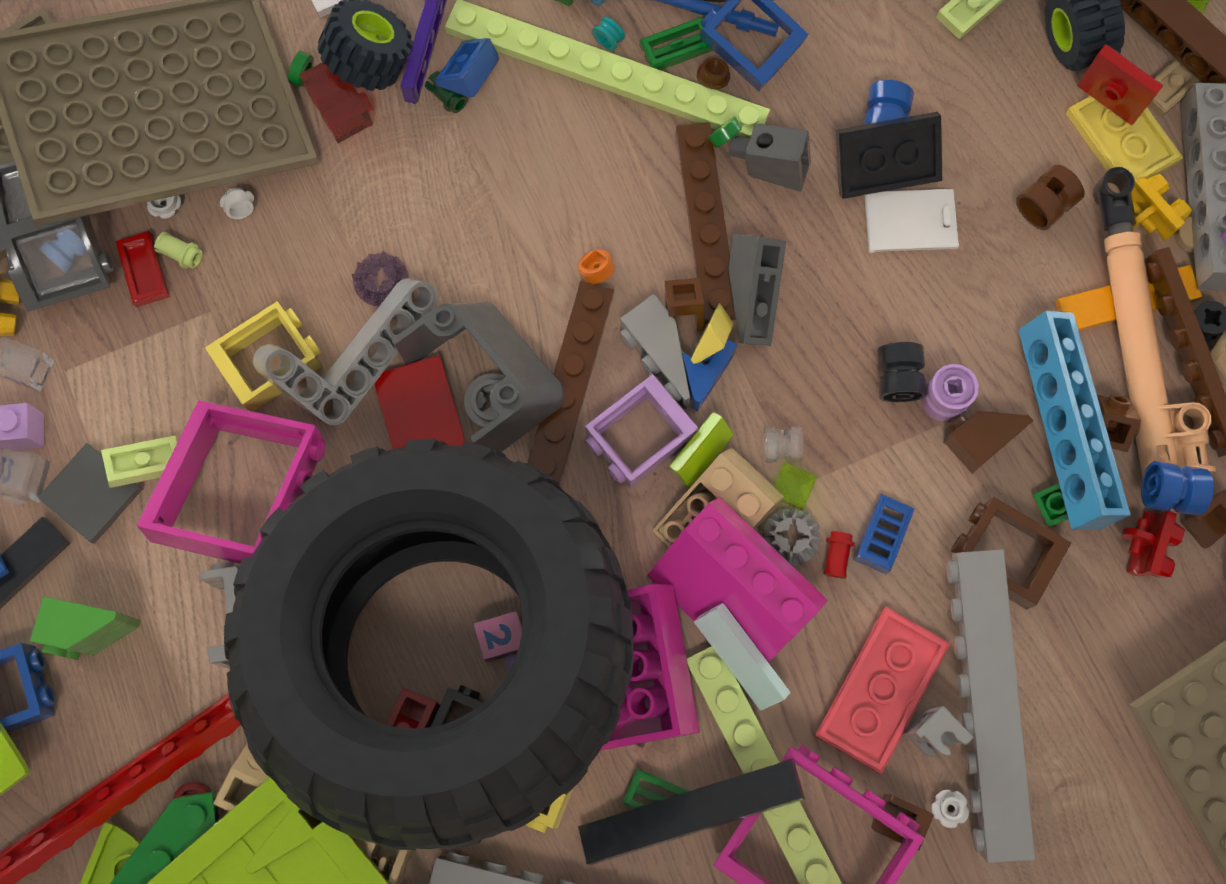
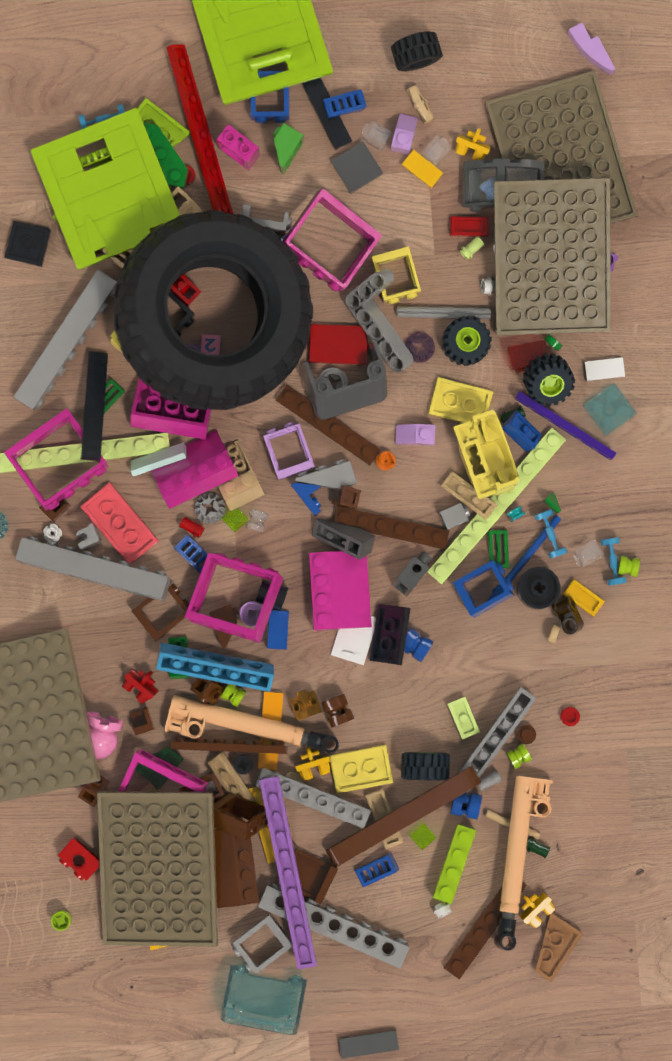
camera: 105 degrees right, 10 degrees up
(61, 379) = (422, 169): none -> yellow tile
(110, 719) = (242, 152): none -> dark pink window
(137, 461) = (362, 197): yellowish green plate -> none
(306, 260) = (443, 312): none -> light grey axle
(343, 201) = (466, 341): none -> black wheel
(453, 183) = (458, 400): none -> light yellow tile
(533, 230) = (415, 434): none -> lavender slope
(536, 97) = (486, 455): none -> light yellow piece
(605, 113) = (466, 494): none -> tan tile
(649, 125) = (455, 516): none -> light grey brick
(701, 450) = (268, 478): lime tile -> none
(713, 73) = (472, 561): reddish brown plate -> none
(714, 335) = (323, 504): light yellow slope -> none
(725, 132) = (434, 553): green tile -> none
(852, 267) = (339, 591): none -> dark pink slope
(956, 345) = (278, 630): none -> blue slope
(1002, 428) = (202, 586): none -> dark pink window
(1065, 251) = (305, 704): none -> pearl gold brick
(1102, 373) = (234, 698): none -> lime wheel
(1119, 85) = (382, 766): red plate -> none
(1183, 488) = (162, 700): blue wheel -> none

